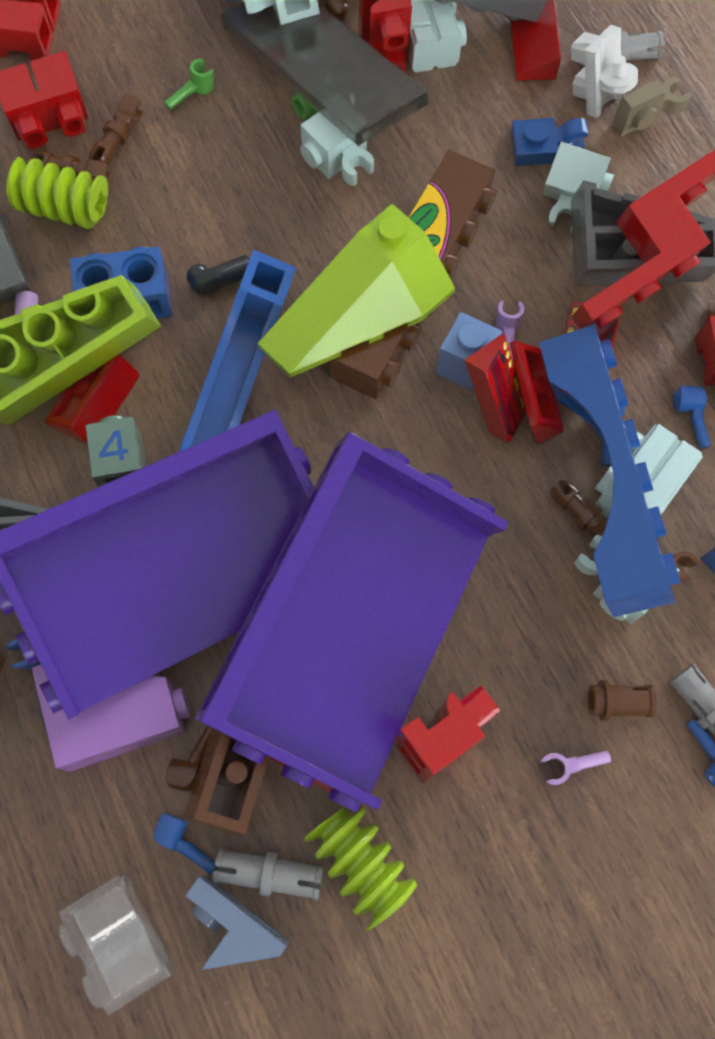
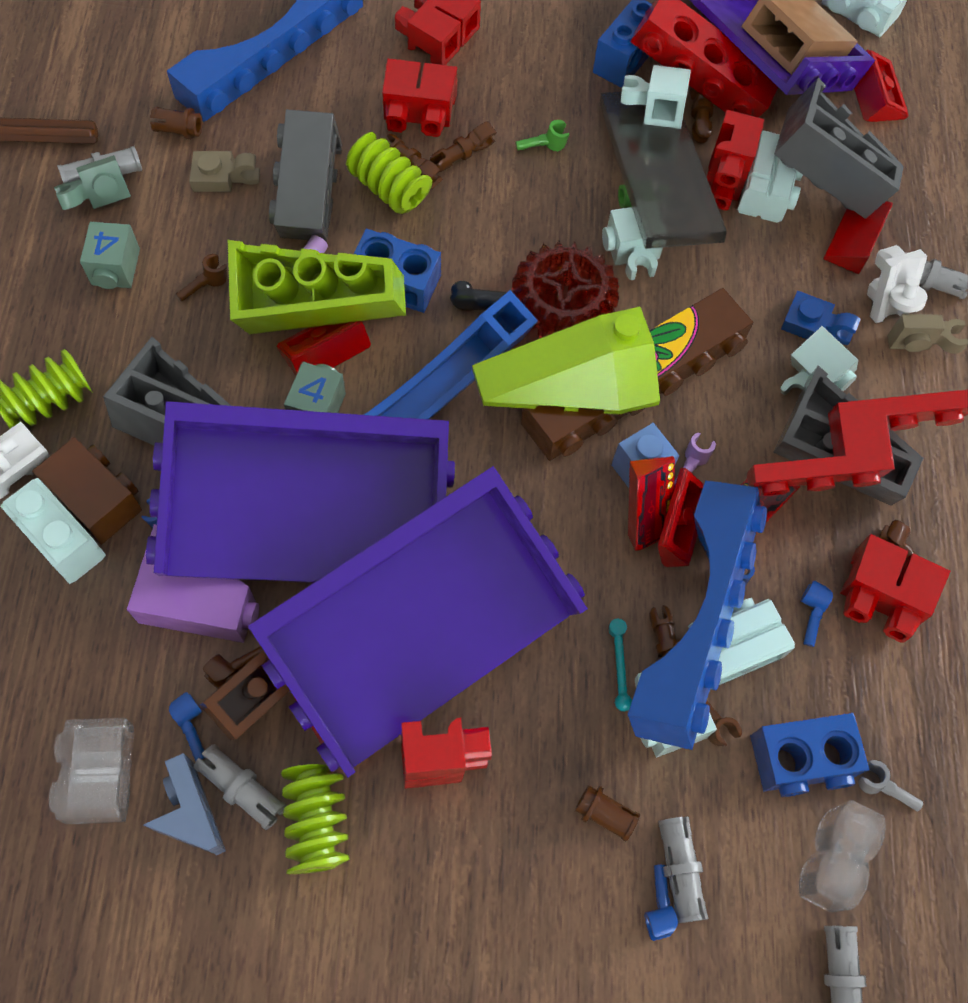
camera: 25 degrees right, 5 degrees down
(294, 207) = (542, 282): none -> clear red gear
(530, 525) = (617, 629): none -> teal hinge
(575, 764) = (536, 843): lavender hand -> none

